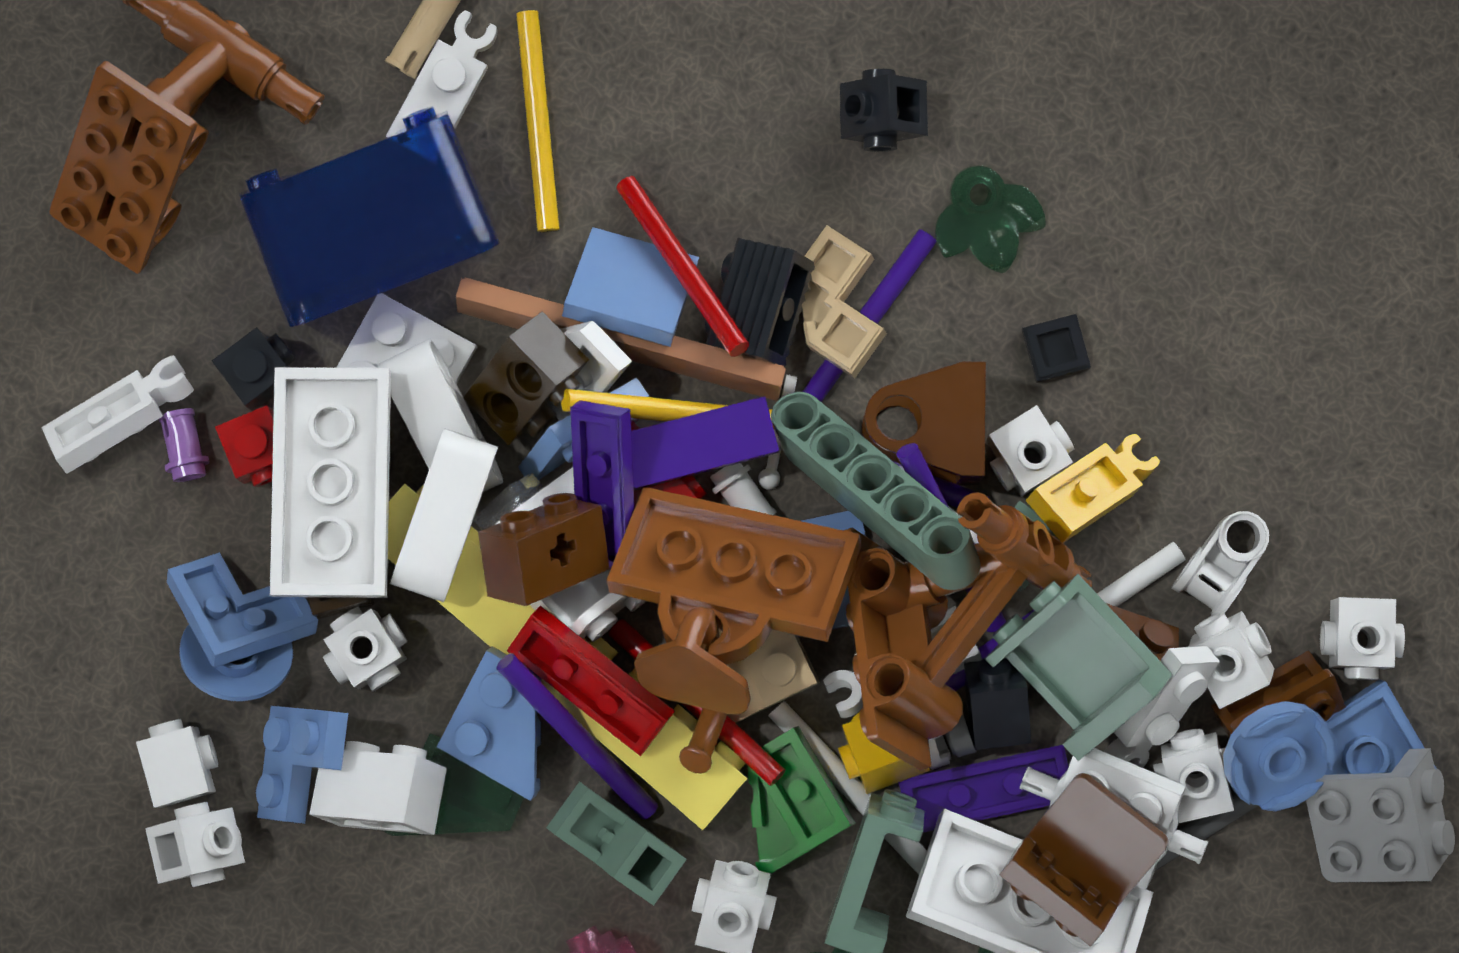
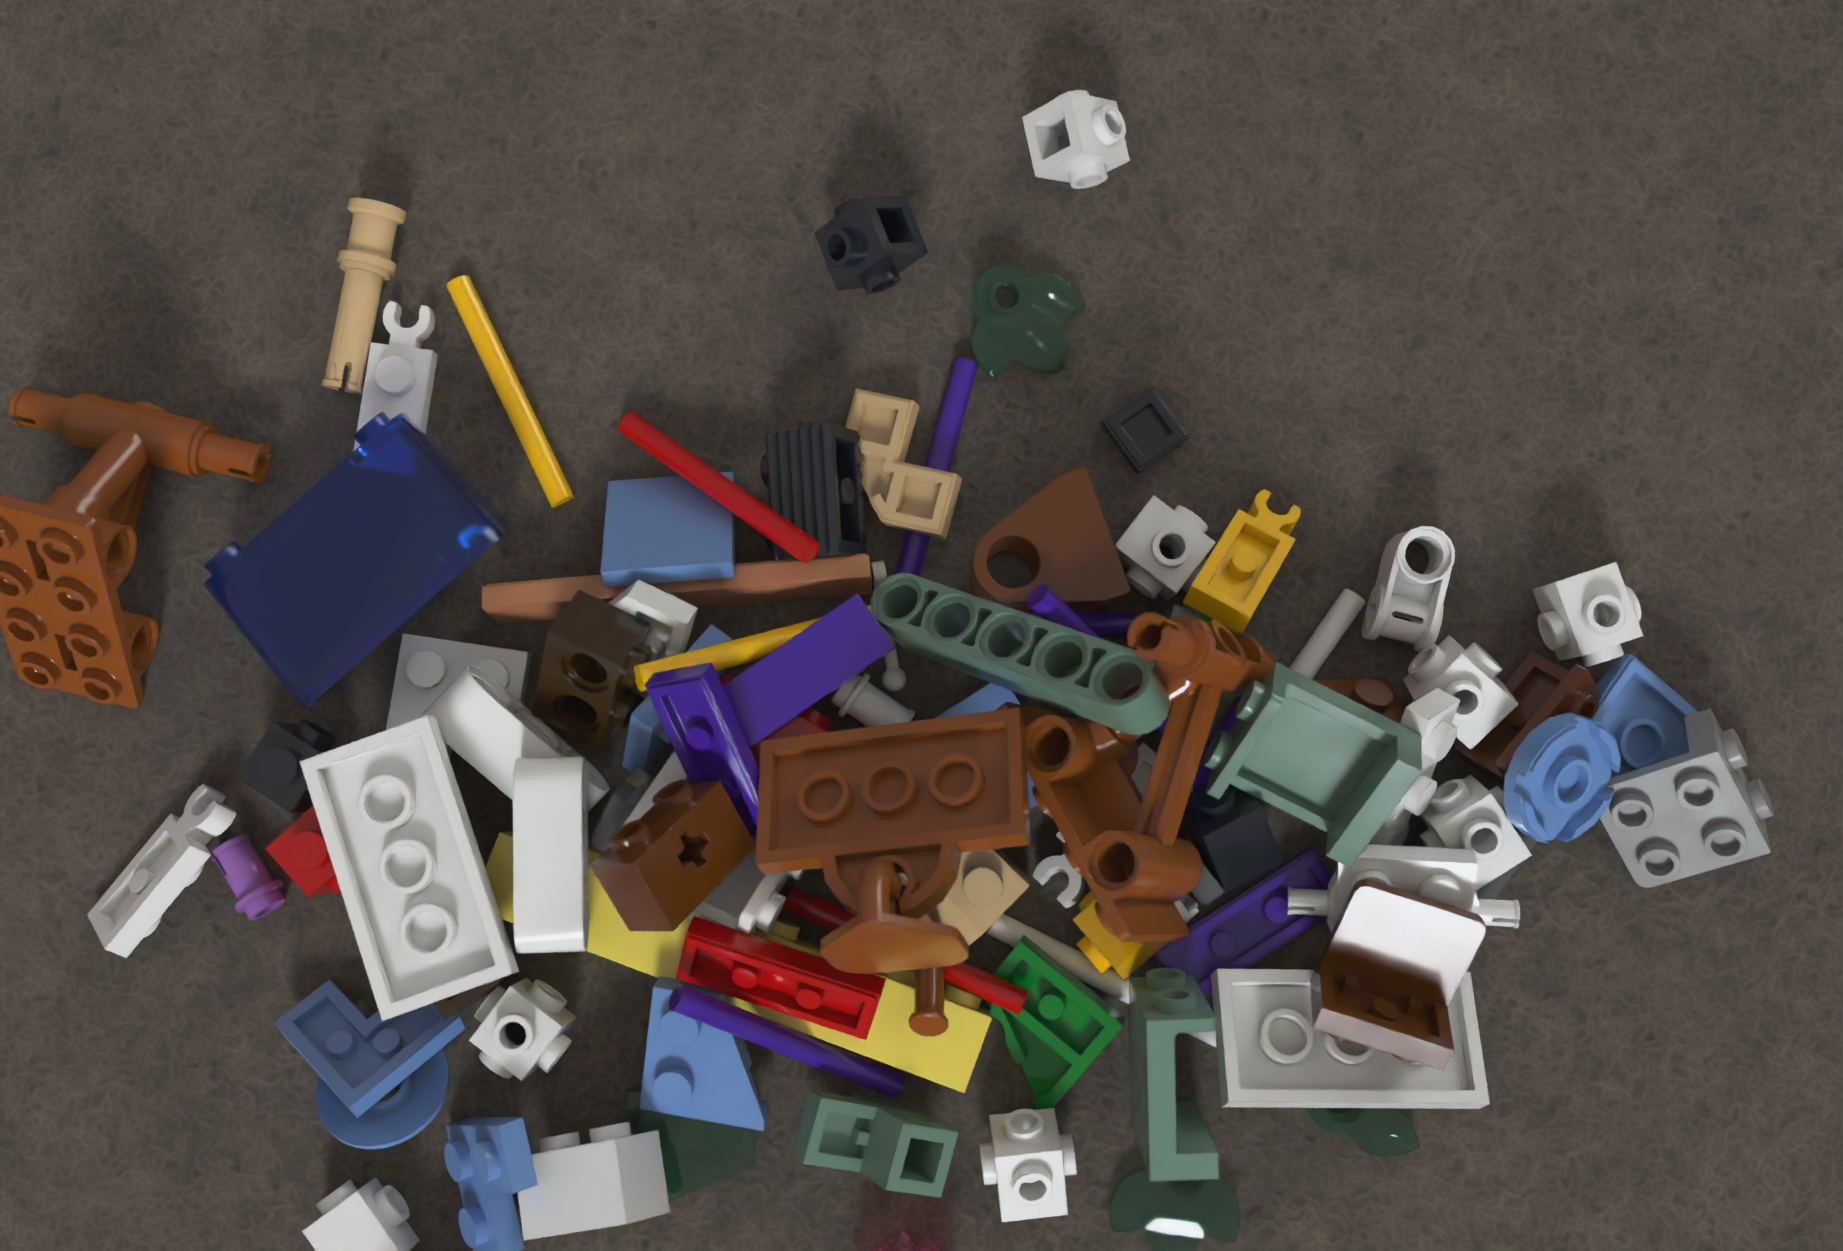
camera: 25 degrees left, 0 degrees up
(1087, 84) = (1076, 139): none -> white brick

